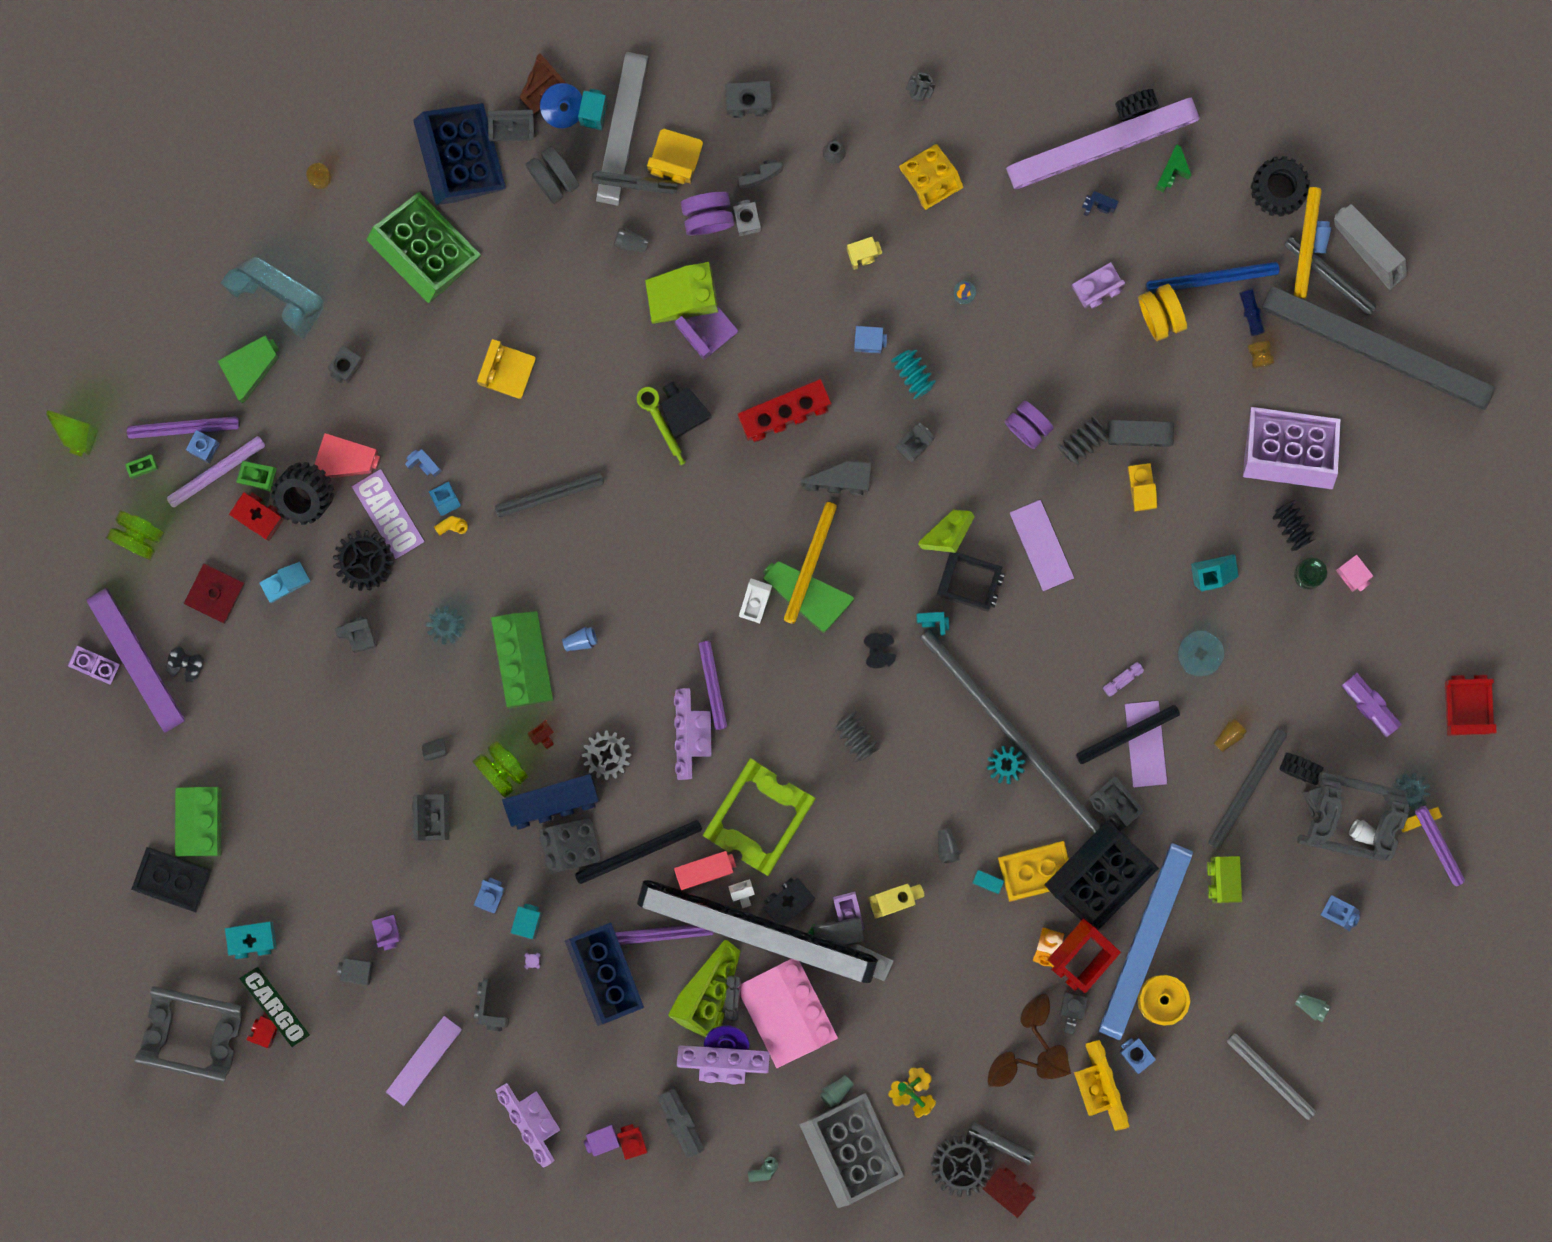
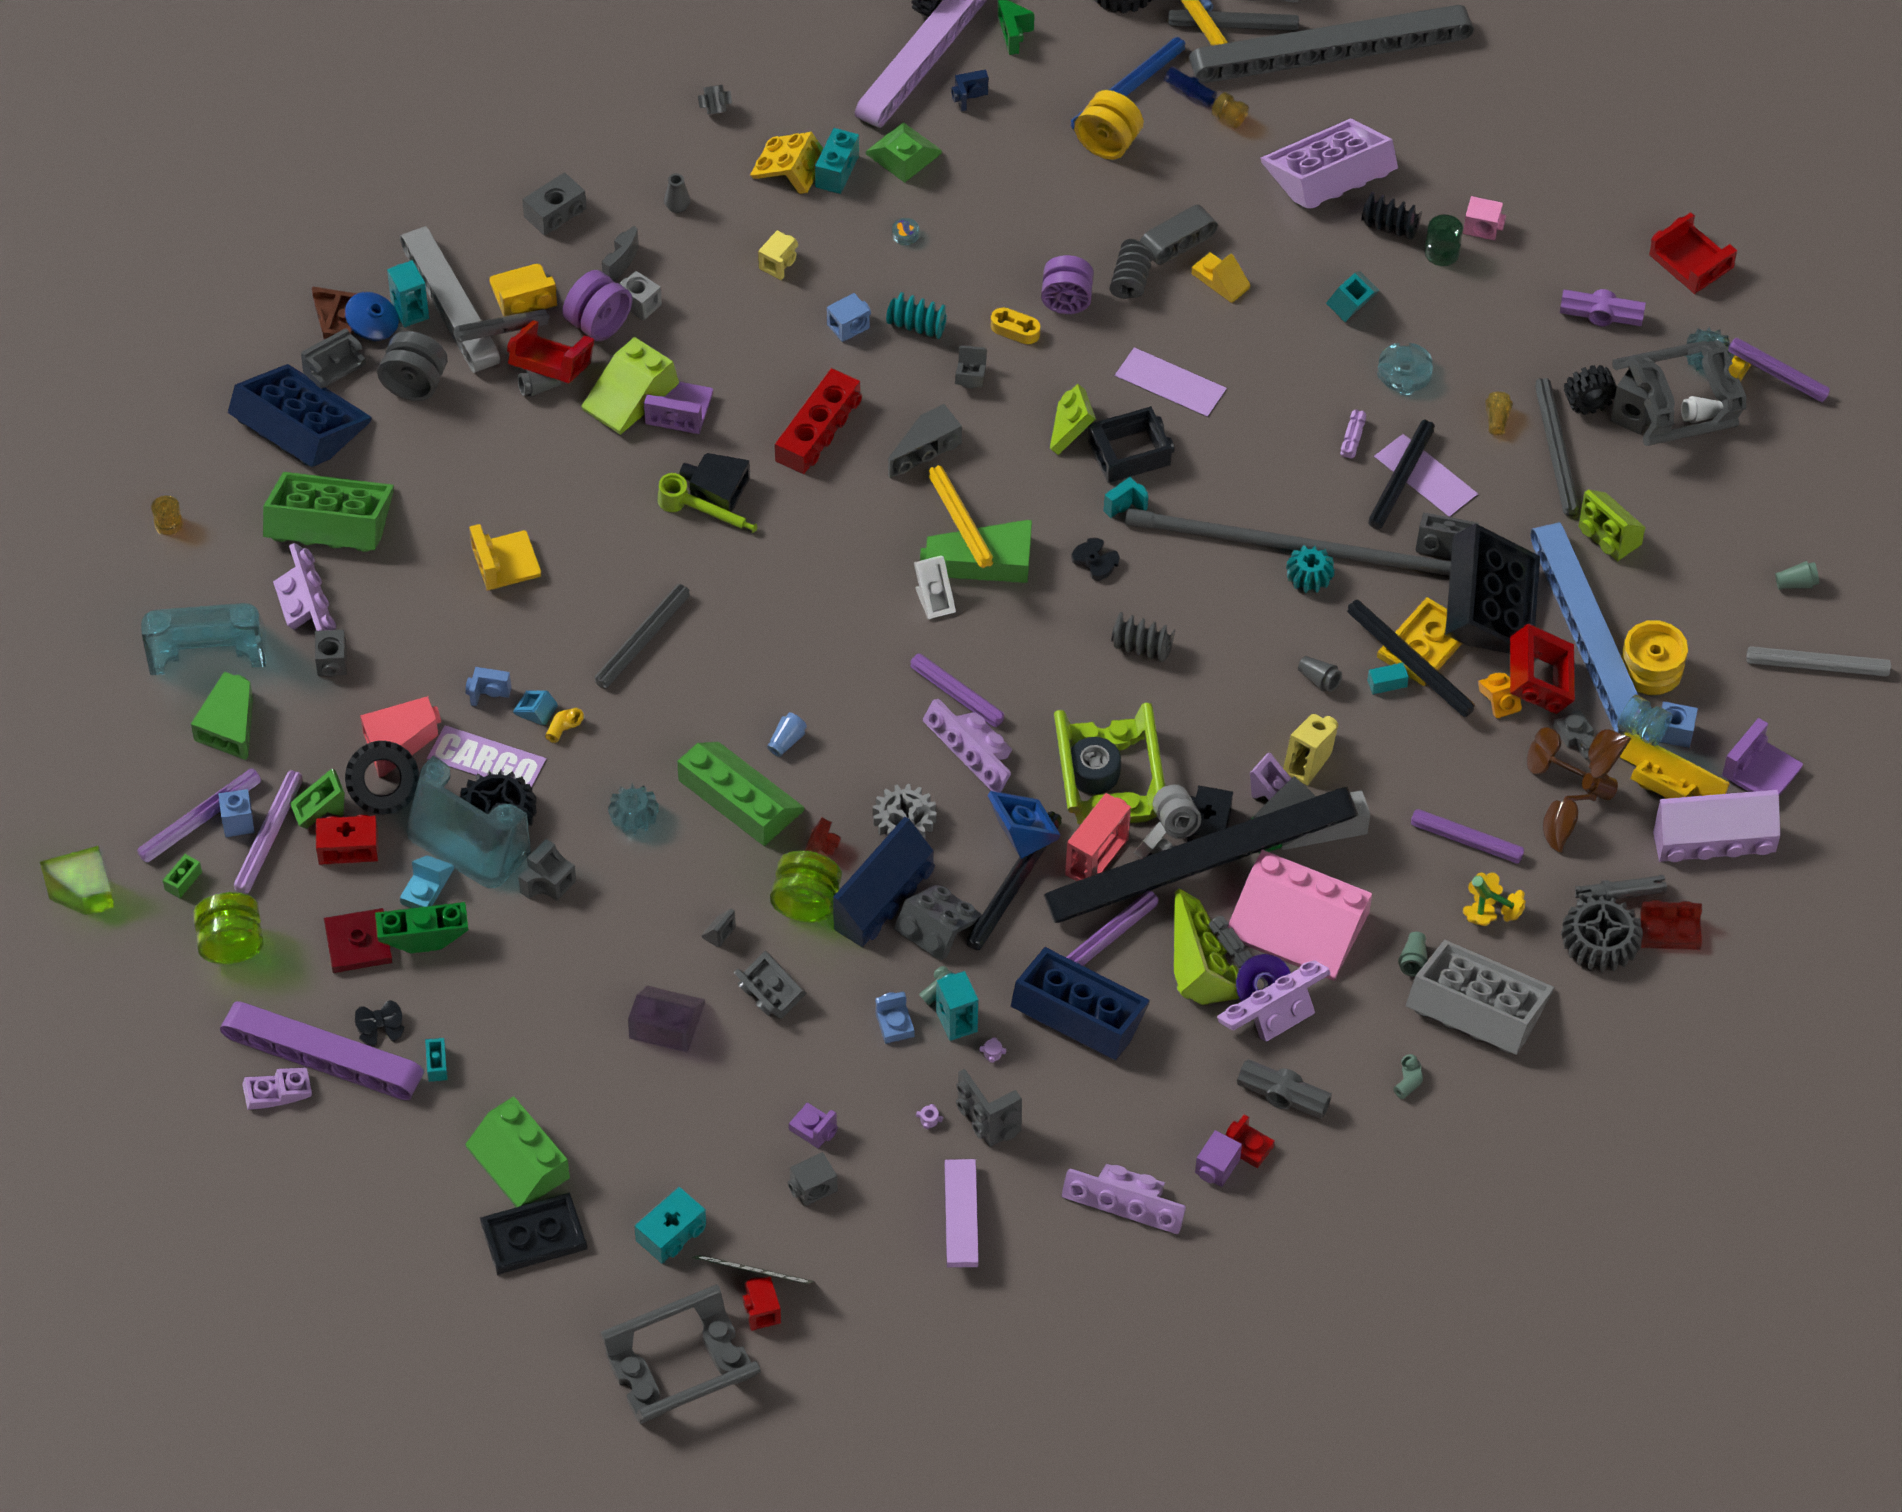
camera: 40 degrees left, 30 degrees down
(199, 716) = (436, 1059): none -> teal piece
(252, 618) = (422, 927): none -> green slope
(329, 597) = (458, 833): none -> clear light blue windscreen
(356, 789) = (665, 1018): none -> clear purple slope
(361, 305) = (302, 594): none -> lavender bracket
(459, 977) = (929, 1116): none -> lavender piece
(533, 894) = (929, 992): none -> sand green arm
(649, 228) = (547, 356): none -> red panel
(671, 820) = (1023, 822): none -> blue slope
(751, 808) = (1096, 765): none -> black wheel
(764, 891) = (1176, 811): none -> light grey wheel
(940, 1032) = (1467, 836): none -> medium lavender axle
(961, 201) = (837, 160): none -> teal brick
(979, 422) = (1015, 325): none -> yellow beam
(1011, 882) = (1411, 658): none -> black axle
(1017, 222) = (903, 152): none -> bright green slope
(1093, 1152) = (1717, 826): none -> lavender slope
(1098, 286) = (1028, 152): lavender bracket -> none
(1109, 1048) = (1648, 721): none -> clear light blue wheel
(1165, 1126) = (1758, 764): none -> medium lavender bracket
(1341, 913) = (1744, 484): medium blue bracket -> none

